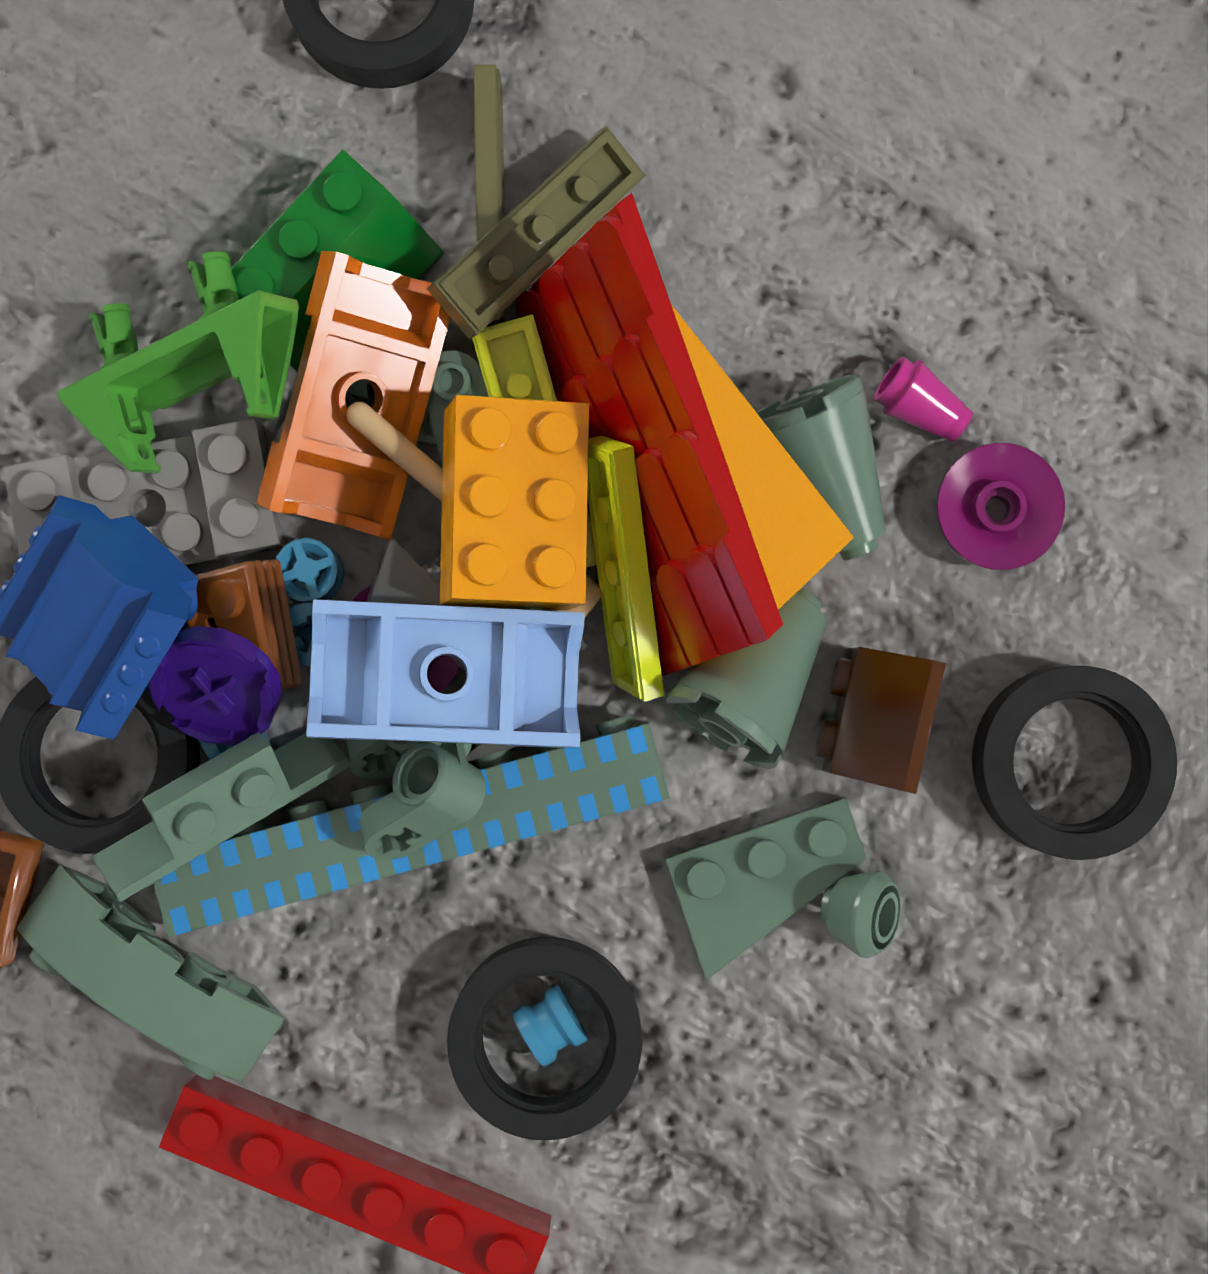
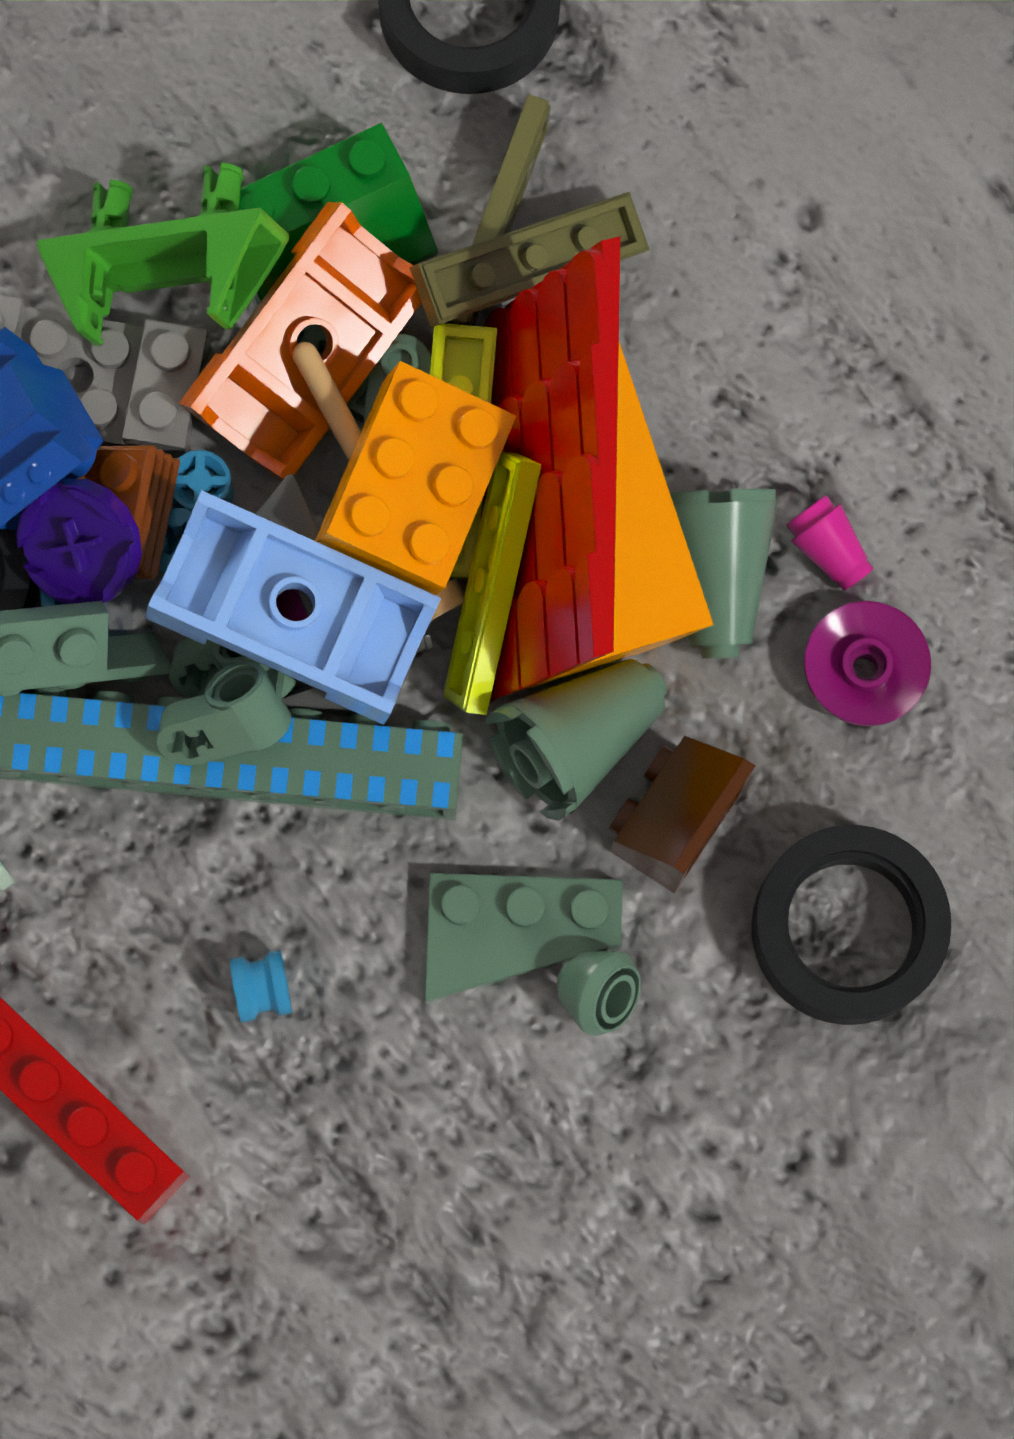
camera: 15 degrees right, 10 degrees down
(544, 1116) = (216, 925): black tyre -> none

